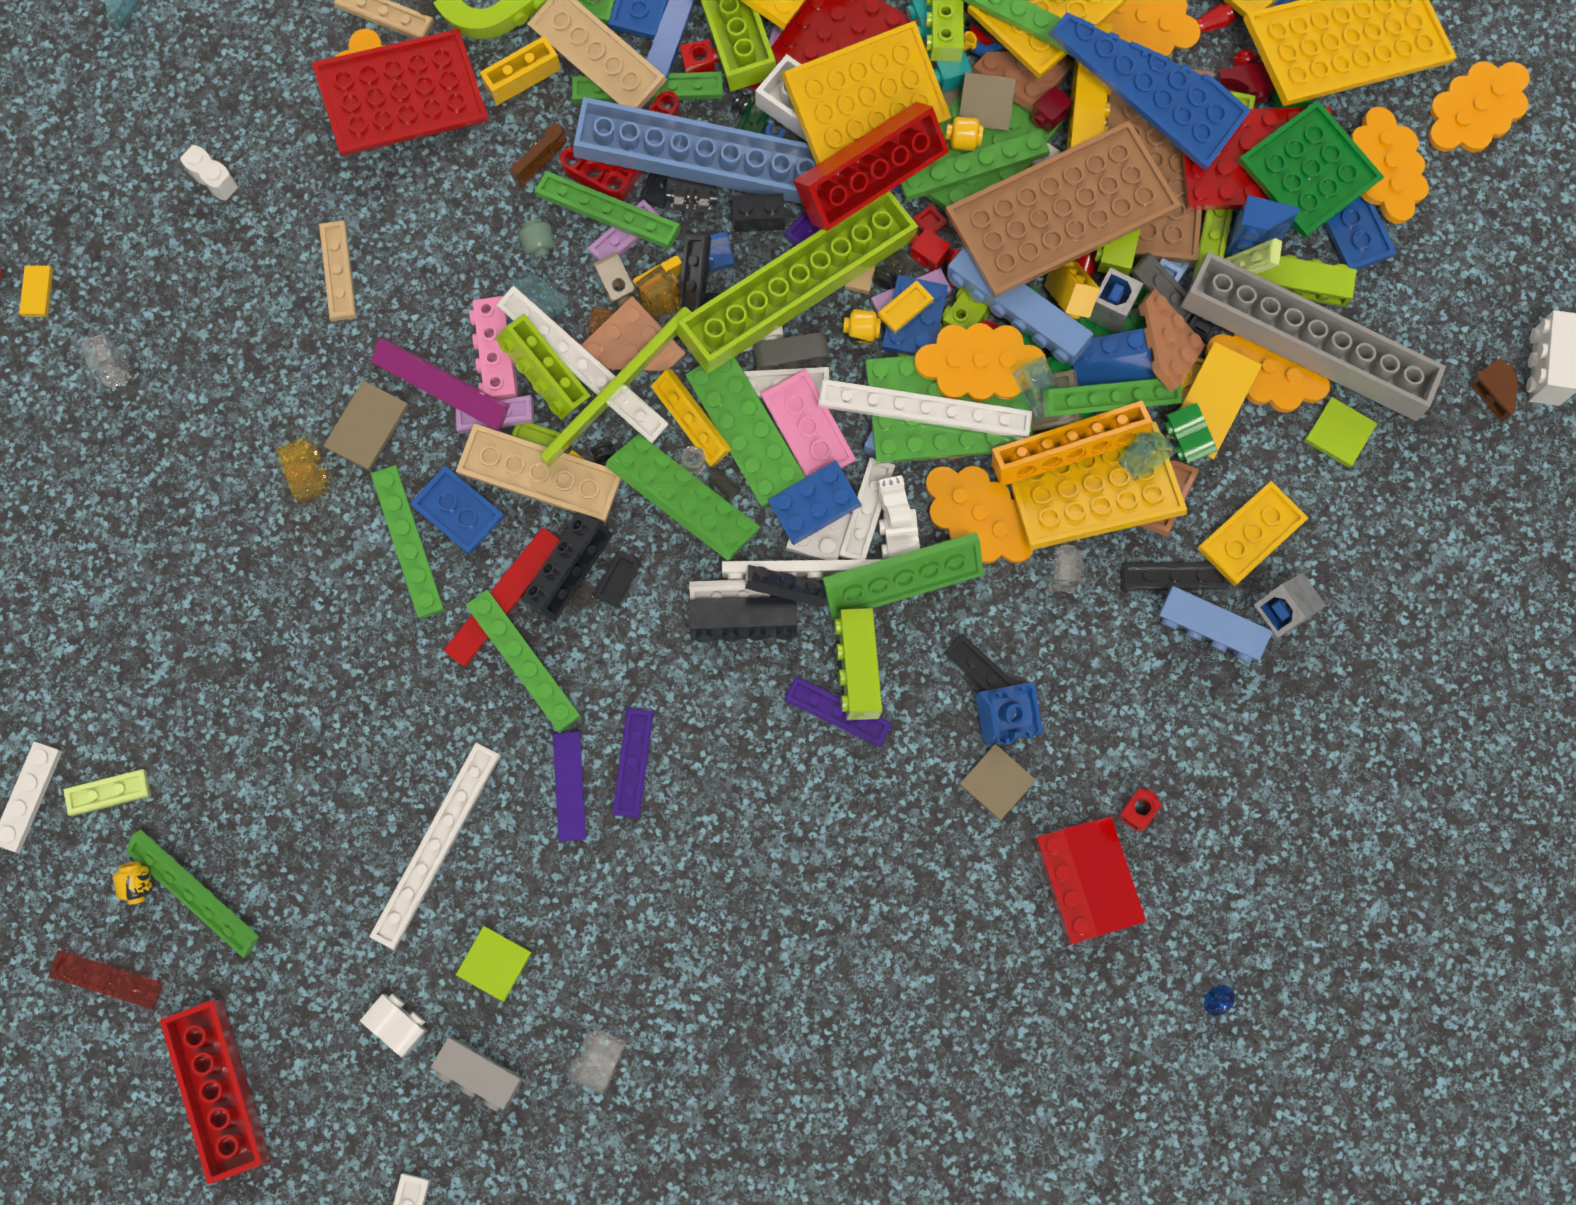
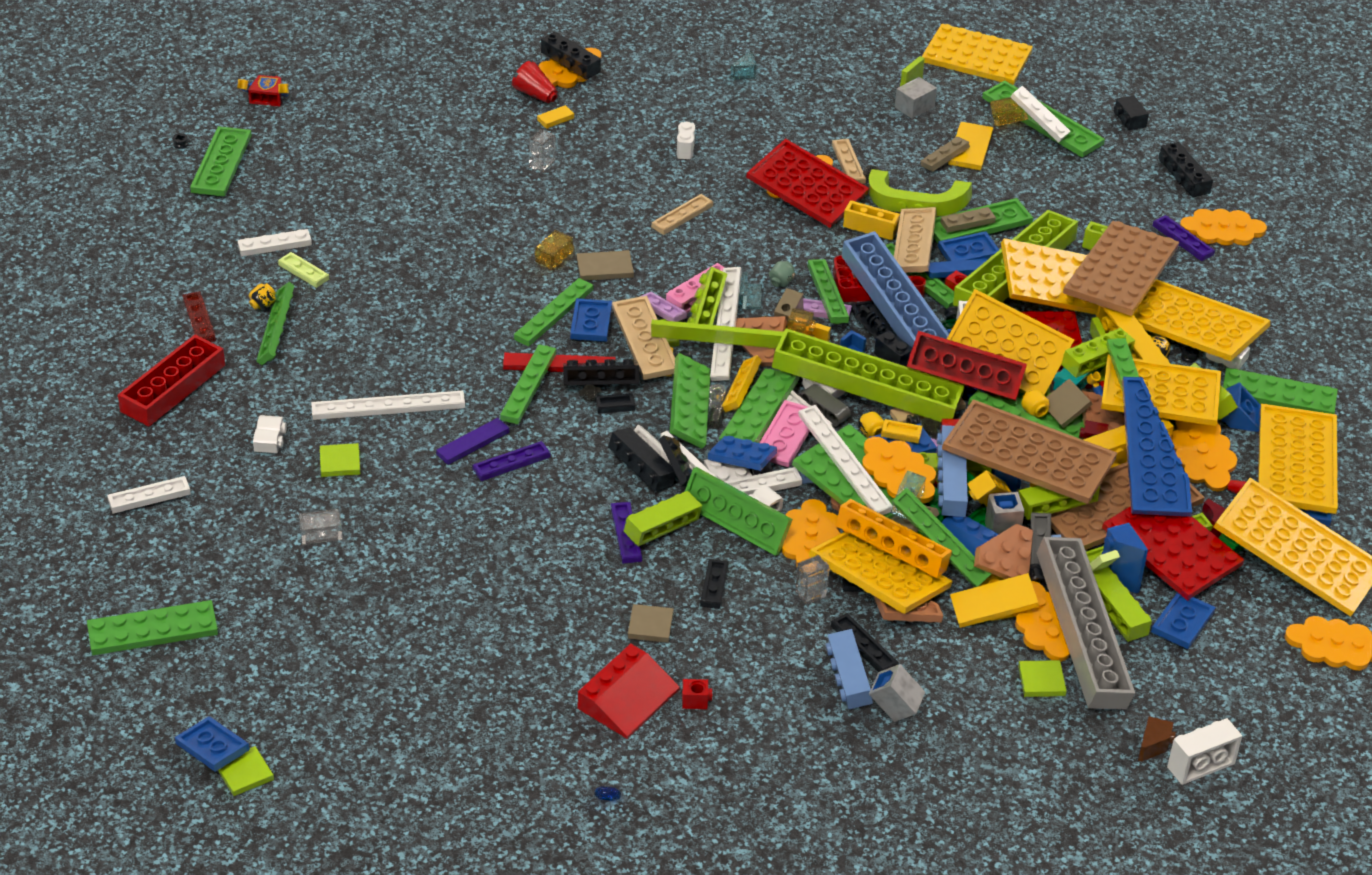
camera: 50 degrees right, 35 degrees down
(440, 383) = (656, 275): magenta tile -> none
(476, 1074) = (268, 480): light grey brick -> none
(538, 155) = (823, 251): reddish brown hinge -> none
(694, 272) = (837, 332): black tile -> none
(895, 502) = (777, 481): white leg -> none
(1009, 713) = (698, 603): blue slope -> none
(1146, 453) = (926, 577): clear light blue slope -> none
(1190, 433) = (960, 596): green brick -> none
(1252, 533) = (931, 664): yellow tile -> none
(1311, 167) = (1188, 561): green plate -> none
(1395, 155) = (1242, 612): light orange plate -> none

